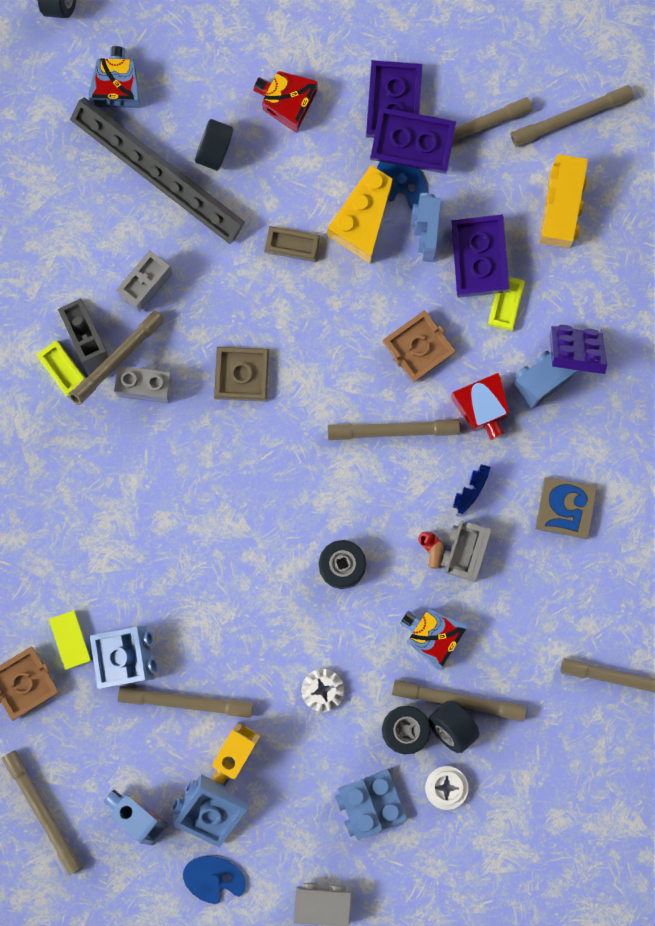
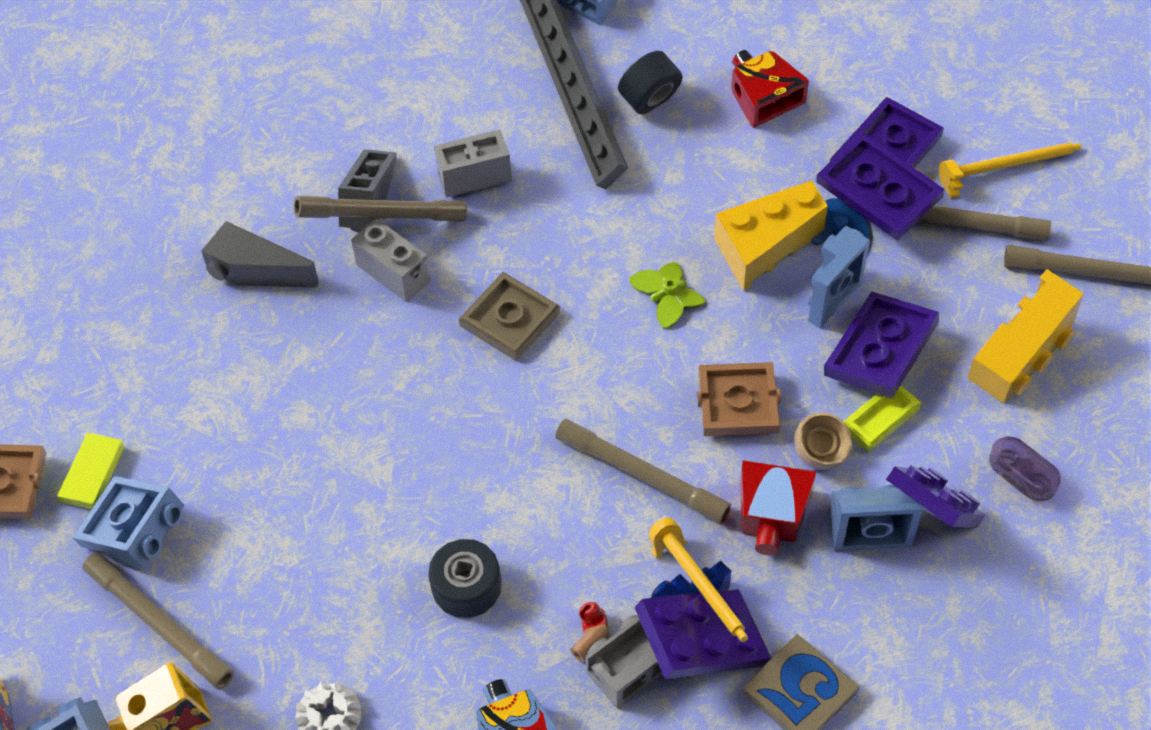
camera: 40 degrees right, 25 degrees down
(53, 440) = (254, 261): none -> dark grey slope
(61, 367) = (325, 186): neon yellow tile -> none
(292, 244) = (667, 223): dark tan tile -> none
(326, 292) = (669, 289): none -> lime piece
(438, 465) = (668, 535): none -> yellow piece
(446, 96) = (951, 173): none -> yellow piece
(487, 346) = (823, 441): none -> tan hair
(498, 514) = (694, 640): none -> dark purple plate
(607, 289) = (1026, 469): none -> clear purple plate

